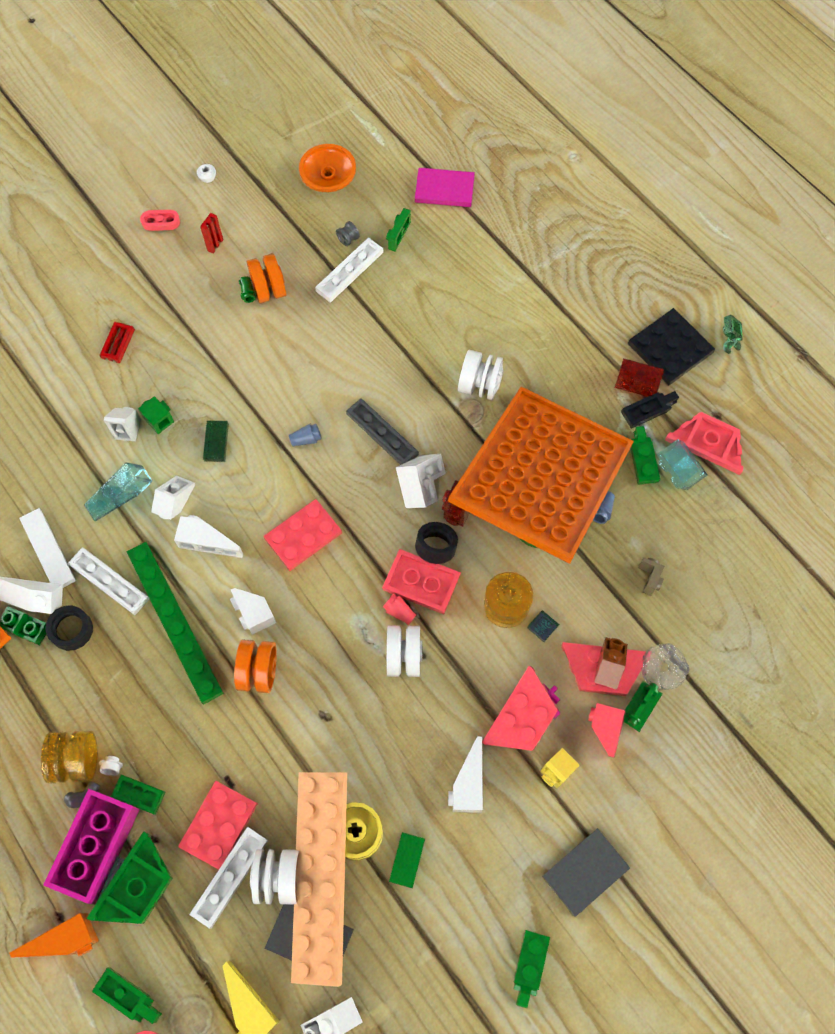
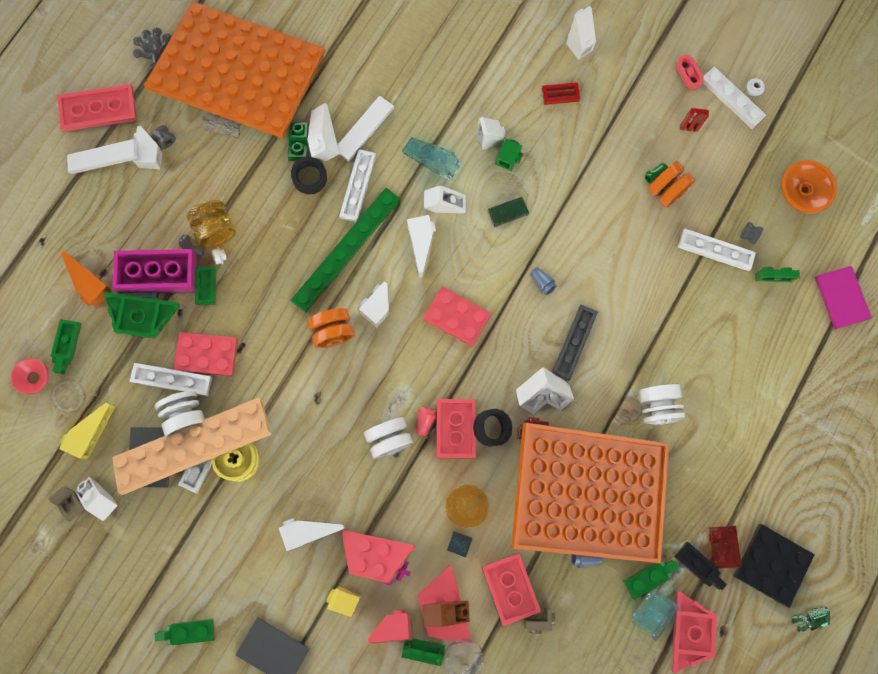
camera: 60 degrees right, 10 degrees up
(69, 294) = (582, 33): none -> white slope
(206, 195) = (733, 97): none -> white plate
(355, 890) = (195, 476): none -> white plate
(407, 860) = (231, 507): green tile -> none
(608, 591) = (511, 589): none -> coral plate

